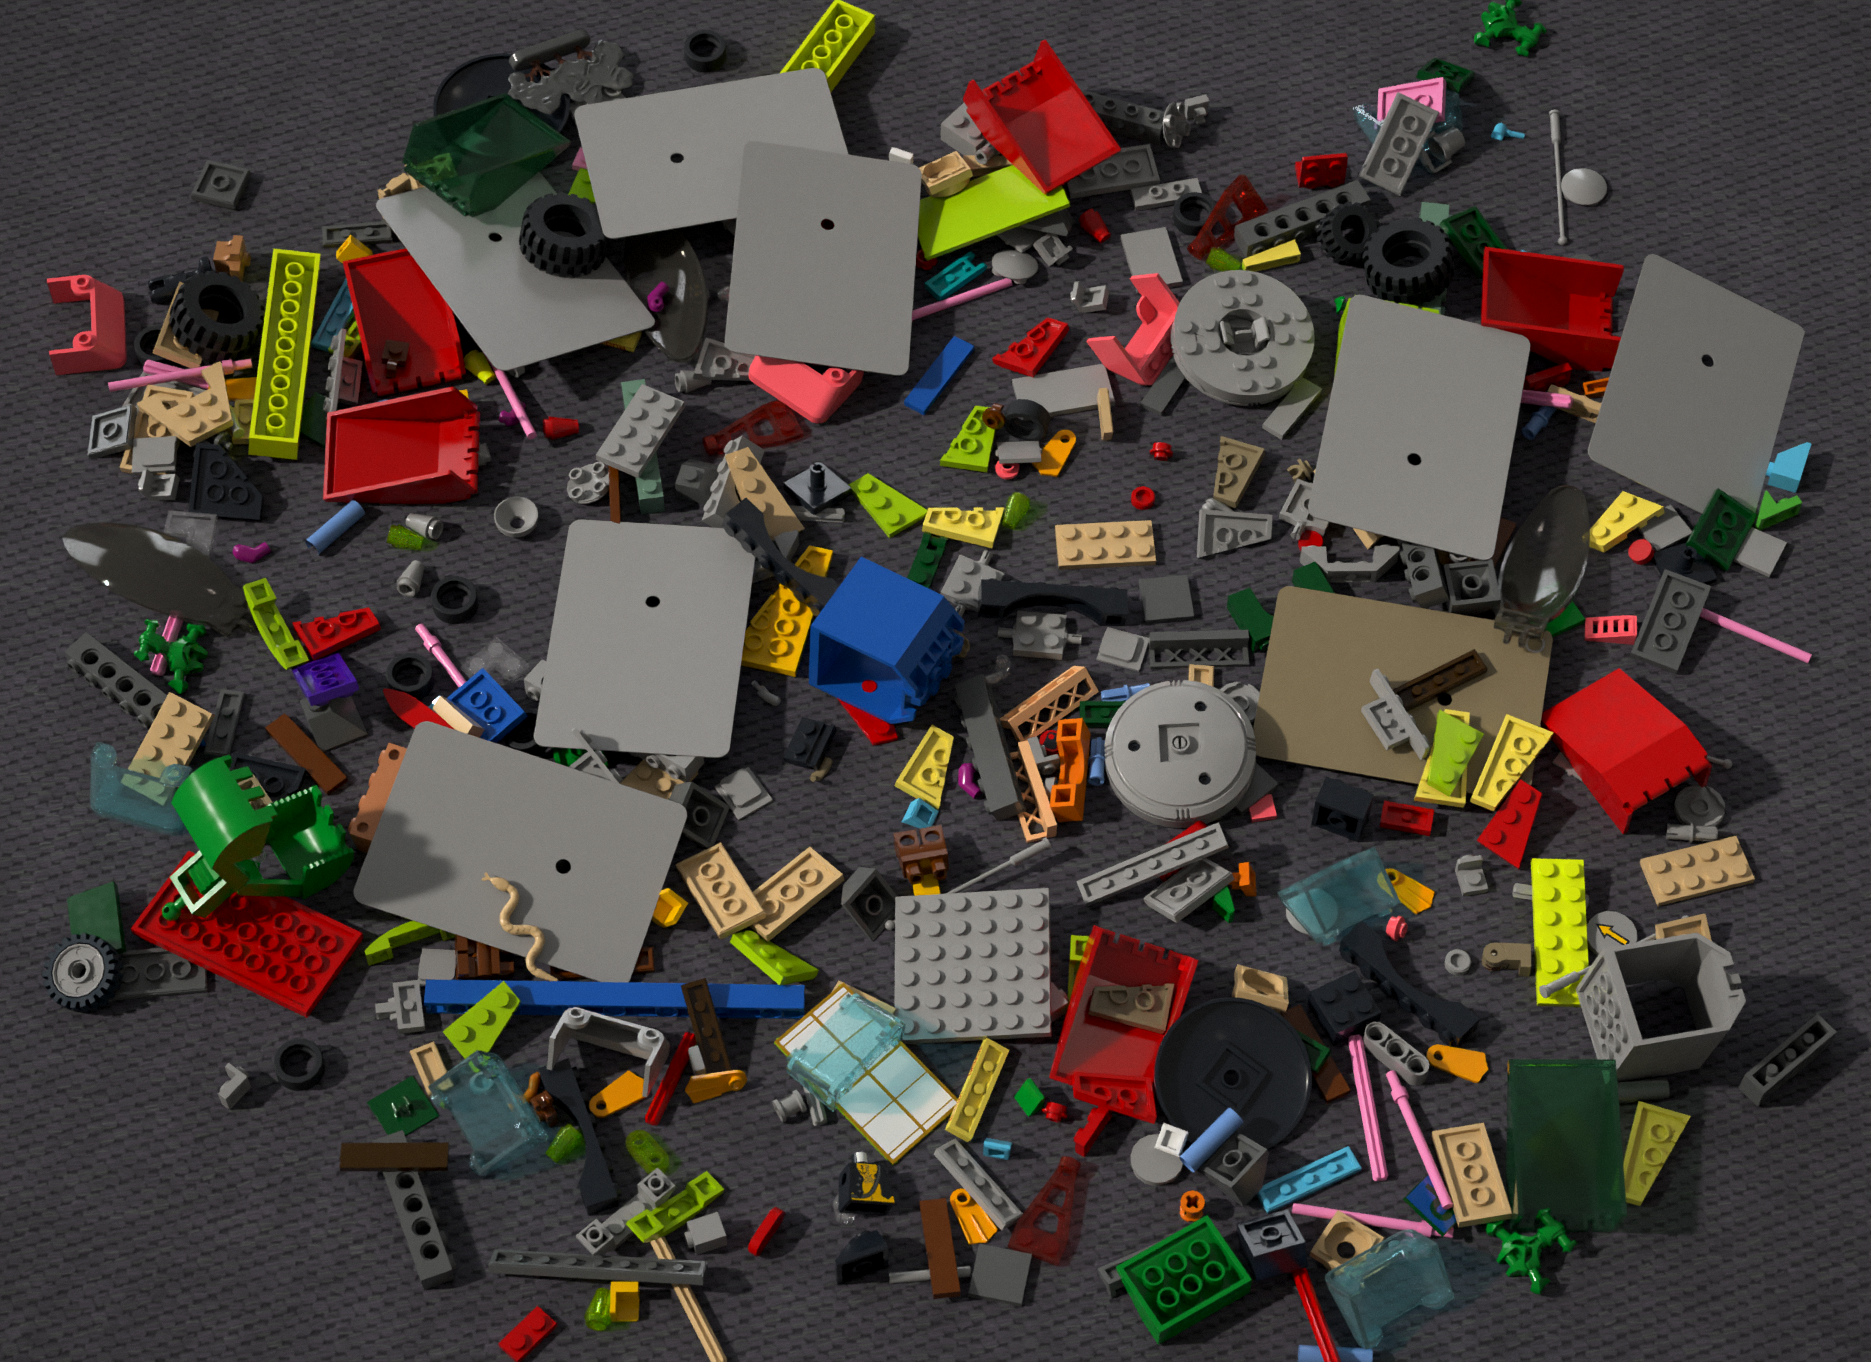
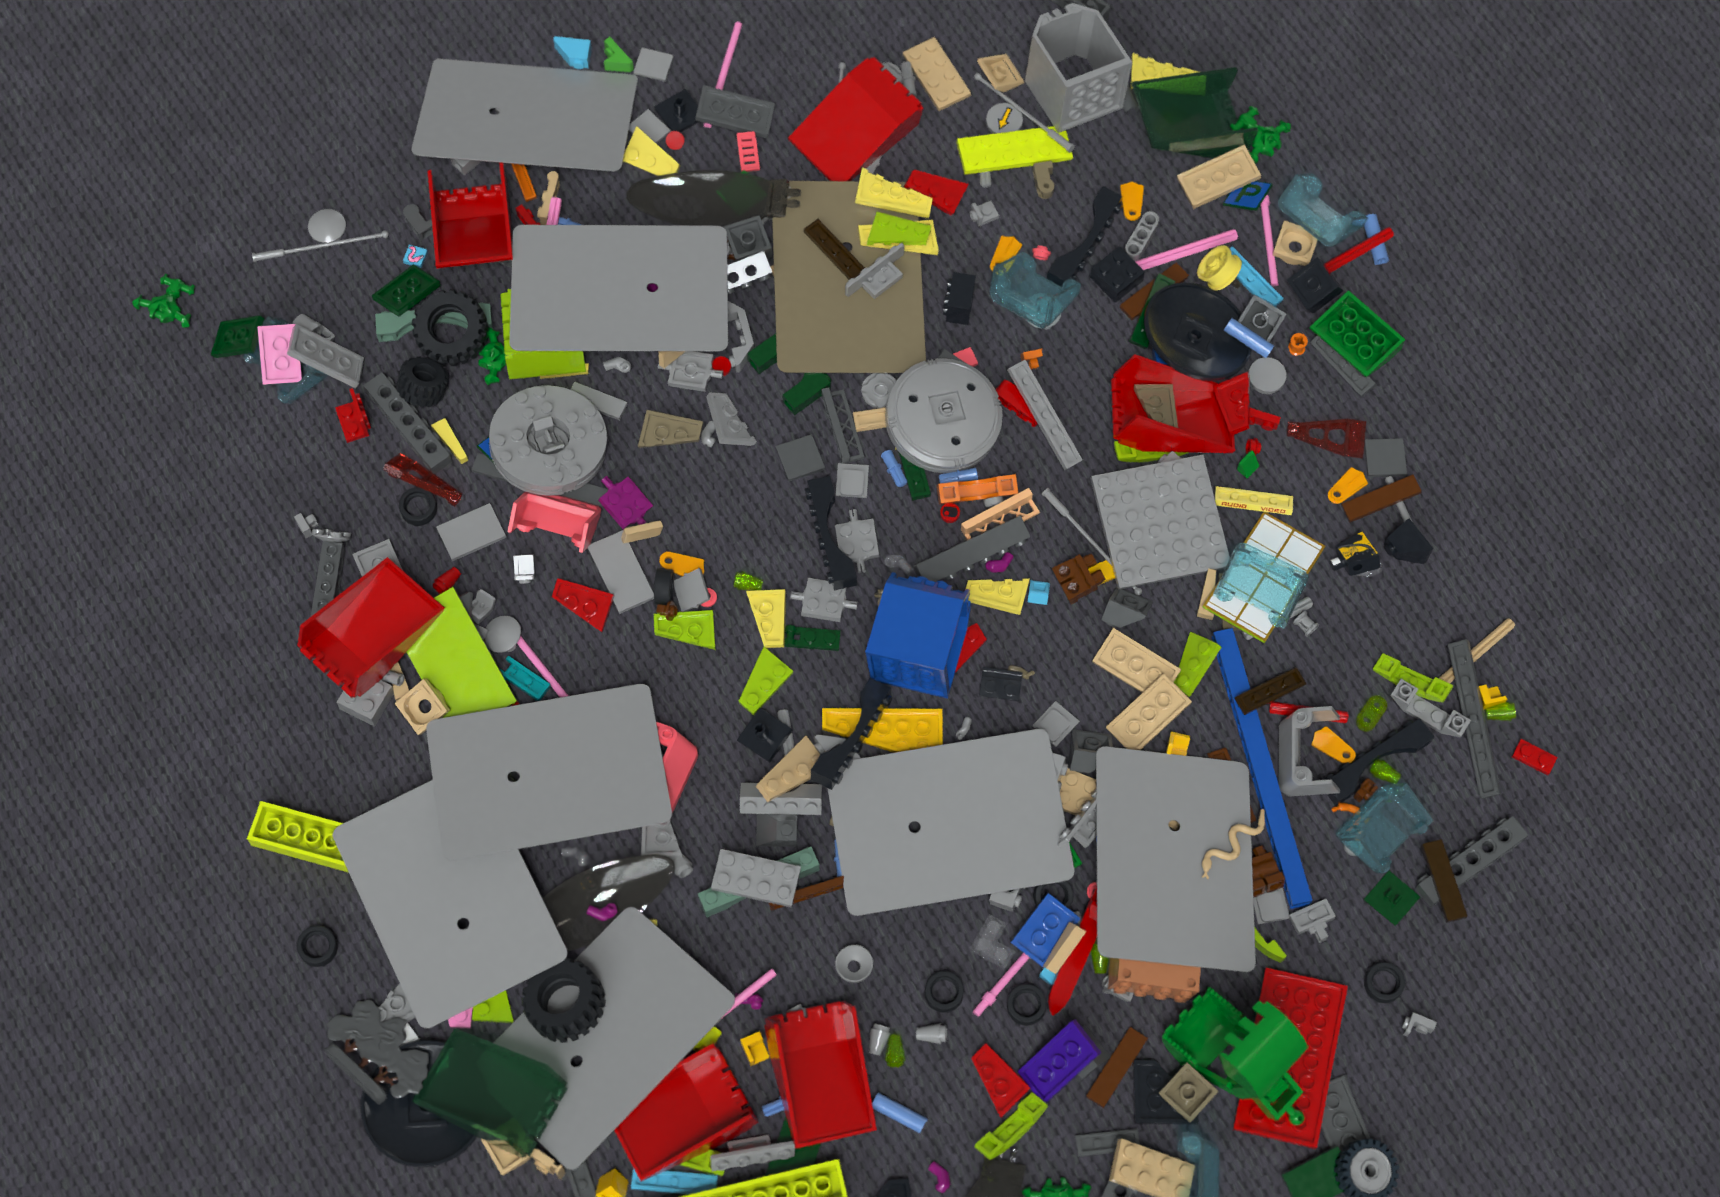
camera: 105 degrees left, 10 degrees up
(394, 355) = (714, 1115): reddish brown plate -> none
(428, 1064) = (1354, 886): tan tile -> none
(484, 1021) = (1315, 852): lime wing -> none
(559, 427) = (754, 959): red cone -> none
(588, 483) = (803, 918): light grey dish -> none
(696, 1061) = (1294, 694): white tile -> none
(705, 1233) = (1422, 654): light grey brick -> none
(714, 1084) = (1301, 667): light orange piece -> none
(766, 1231) = (1407, 614): red tile -> none
(780, 417) = (702, 781): clear red plate -> none
(900, 156) = (409, 749): white tile -> none
(939, 375) = (626, 669): blue tile -> none
(978, 1184) = (1323, 485): light grey tile -> none
(997, 1148) = (1292, 478): medium azure slope -> none
(1044, 697) = (916, 522): light nougat fence -> none
(1045, 764) = (974, 509): light grey bracket -> none
(1105, 545) = (760, 511): tan plate -> none
(1143, 498) = (709, 492): red tile -> none
(1147, 407) = (625, 502): none -> magenta plate
(1161, 451) = (663, 486): red plate -> none
(1162, 194) = (399, 534): light grey plate -> none
(1171, 1140) = (1254, 364): white tile -> none
(1188, 889) = (1059, 390): light grey tile -> none
(1222, 261) = (462, 477): clear neon green cone -> none
(1223, 904) = (1055, 366): green slope -> none
(1261, 987) = (1116, 320): tan piece -> none
(1300, 471) = (656, 379): dark tan plate -> none
(1321, 1130) = (1220, 268): none -> light yellow wheel
(1401, 1098) = (1170, 231): bright pink bar -> none
(1406, 818) = (948, 260): red plate -> none
(1457, 962) = (1054, 212): light grey tile -> none
(1501, 130) = (280, 293): medium azure hand -> none
(1721, 529) = (643, 88): dark green tile -> none

